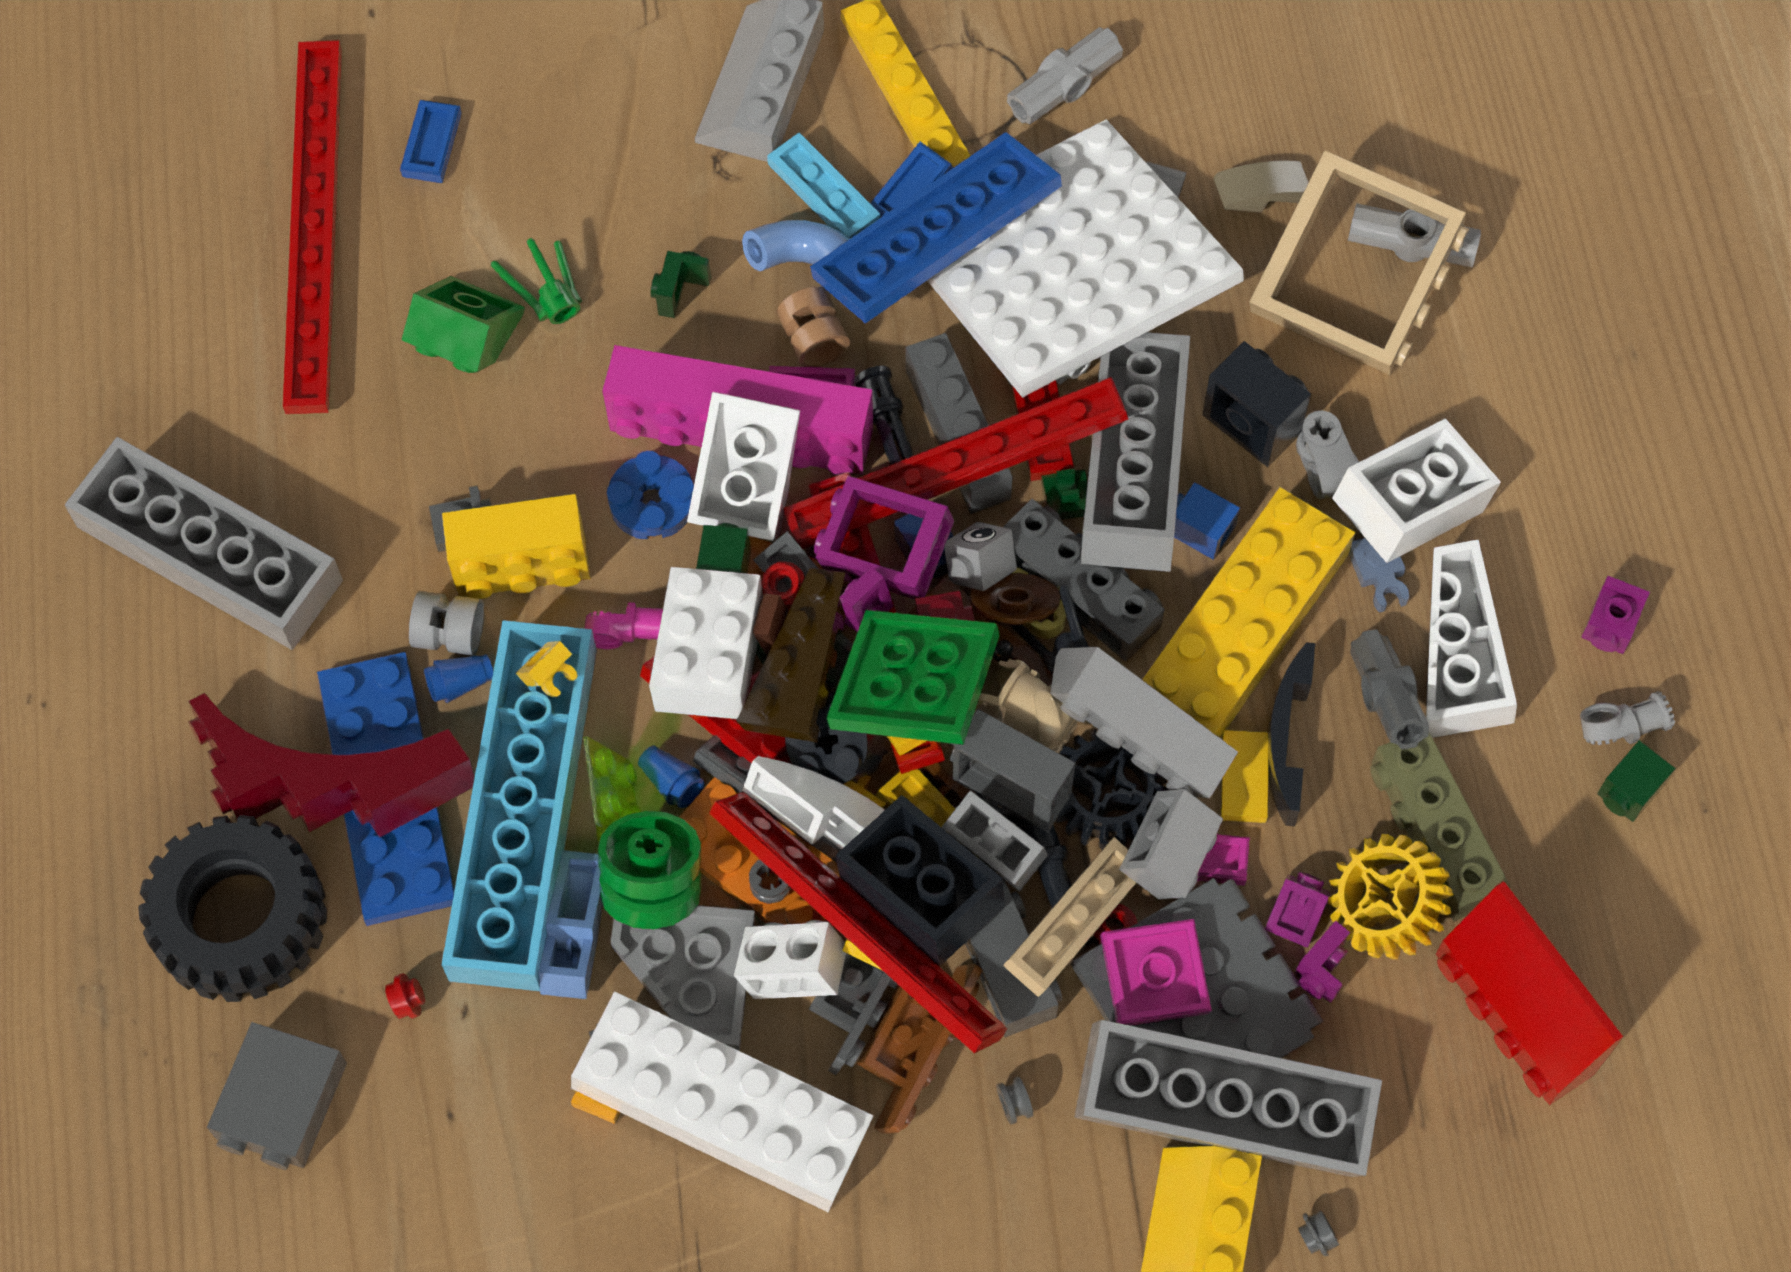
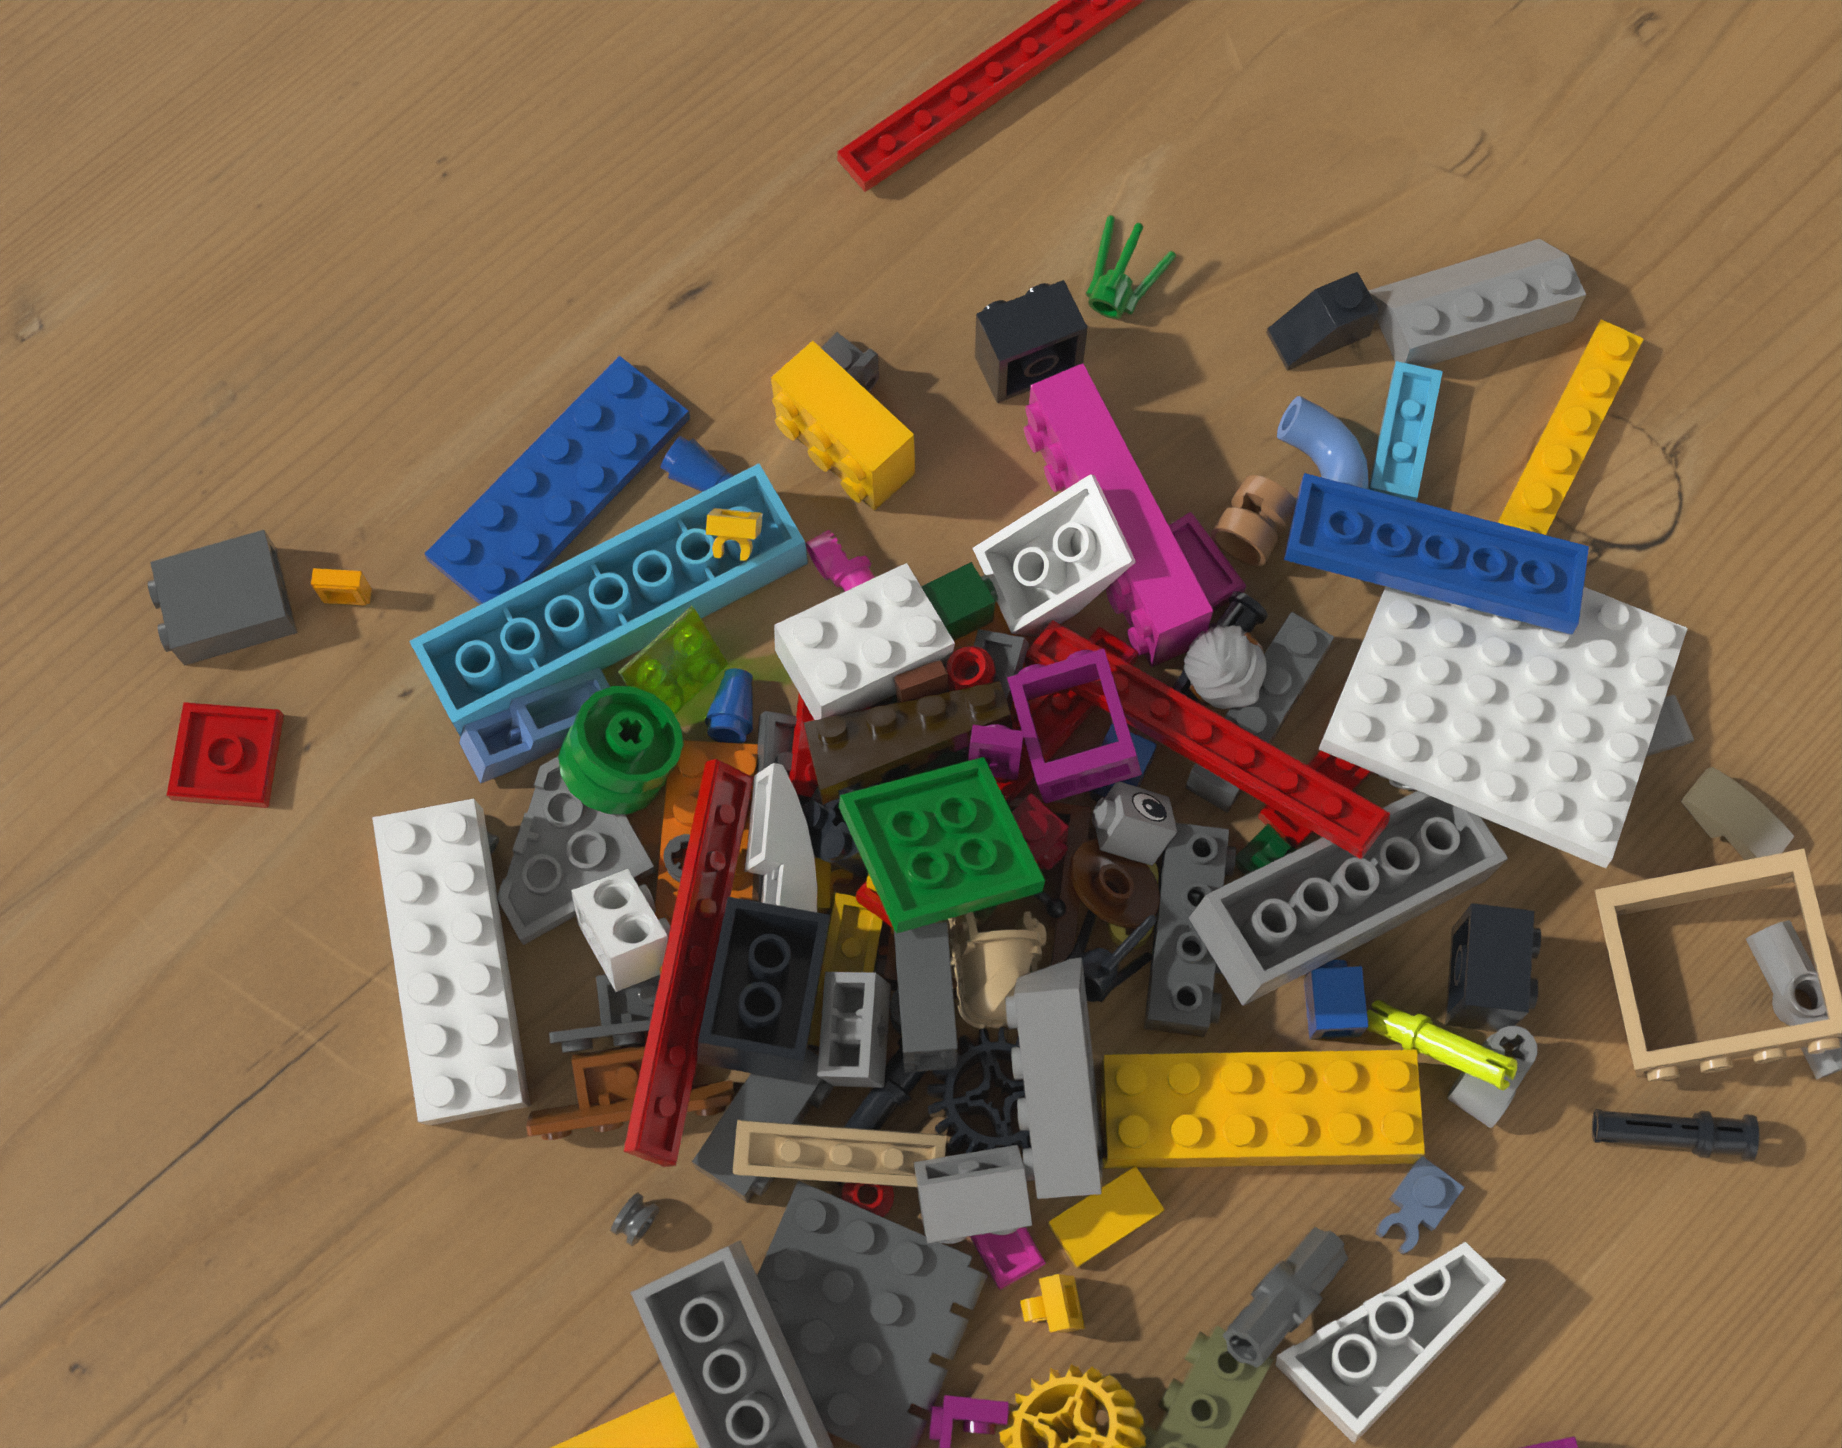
camera: 55 degrees right, 5 degrees up
(200, 863) = (335, 392): black tyre -> none
(204, 543) = (663, 184): light grey brick -> none
(342, 998) = (341, 586): none -> light orange tile
(378, 786) = (532, 474): dark red arch -> none
(405, 996) = (378, 635): red plate -> none
(408, 1179) = (225, 755): none -> red tile
(430, 141) = (1186, 84): blue tile -> none
(460, 323) = (1028, 232): green slope -> none
(461, 628) = (734, 420): light grey wheel -> none
(554, 375) = (1029, 339): none -> black brick
(647, 473) = (971, 482): blue plate -> none
(677, 270) = (1205, 371): dark green bracket -> none
(698, 179) = (1324, 321): none -> black slope
(913, 175) = (1477, 498): blue tile -> none
(914, 415) = (1225, 667): none -> light grey hair
(1064, 75) = (1702, 559): light grey piece -> none
(1155, 972) = (835, 1265): dark pink tile -> none
(1284, 780) = (1234, 1200): black slope -> none
(1285, 848) = (1056, 1305): none -> yellow tile
(1287, 470) = (1460, 1053): none -> neon yellow pin
(1298, 908) = (1006, 1357): magenta bracket -> none
(1416, 490) = (1518, 1184): white brick -> none
(1458, 362) = (1700, 1133): none -> black pin

